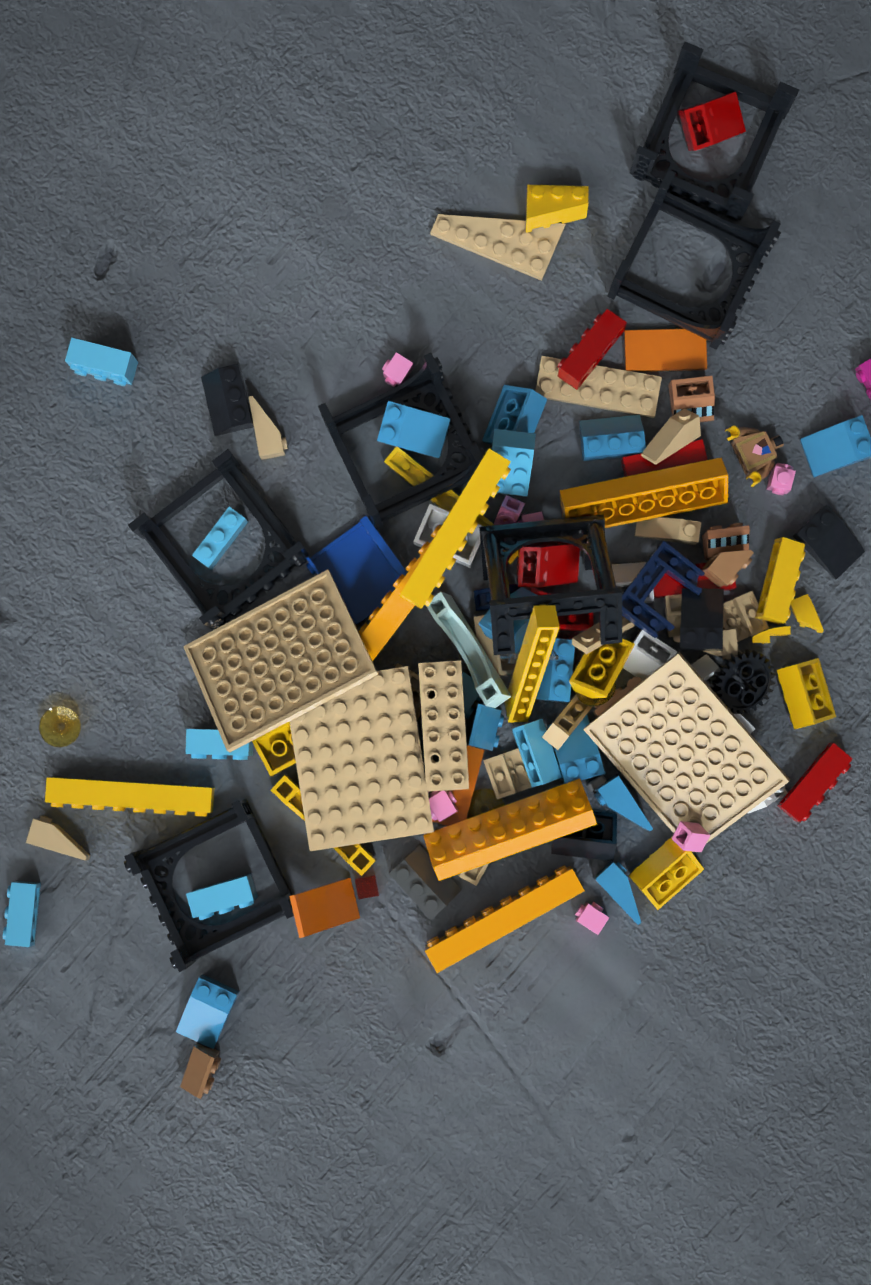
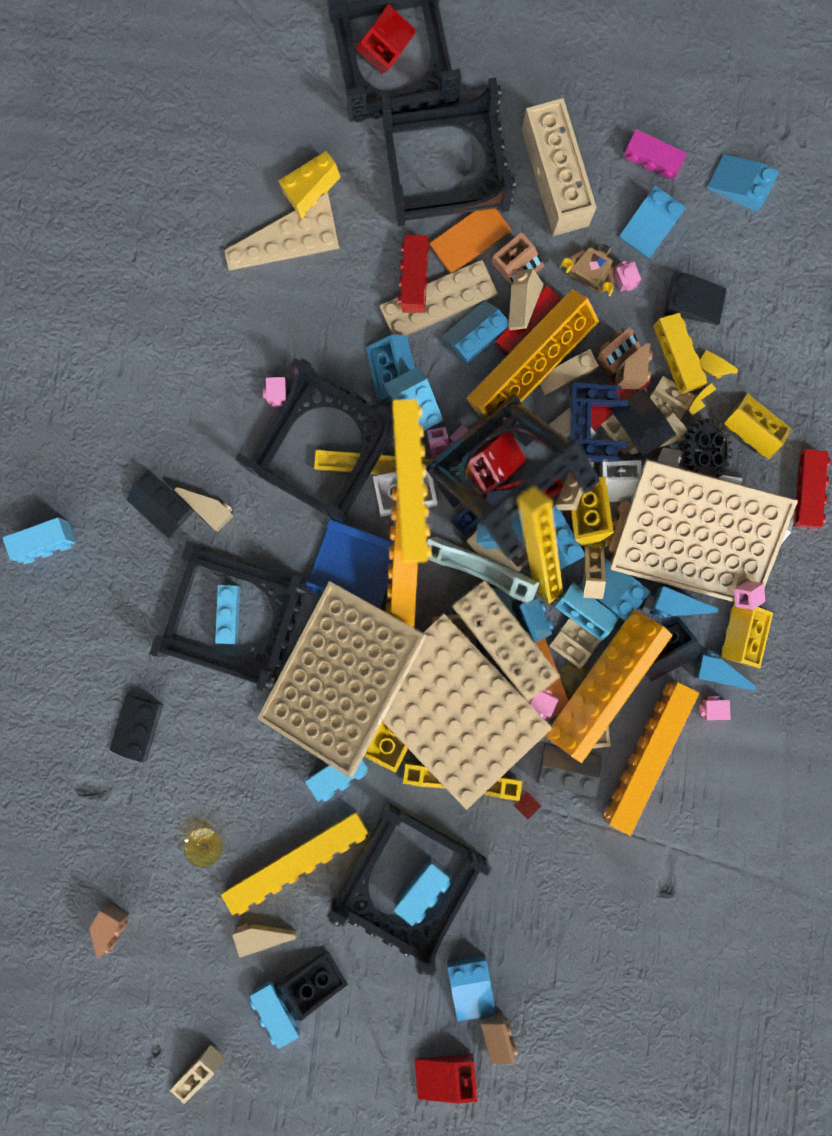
camera: 45 degrees left, 0 degrees up
(70, 911) = (310, 986): none -> black slope
(73, 583) = (136, 728): none -> black slope
(131, 1073) = (446, 1079): none -> red slope
(324, 907) = (508, 845): orange tile -> none
(413, 429) = (321, 427): dark azure slope -> none
(784, 340) = (558, 167): none -> tan piece

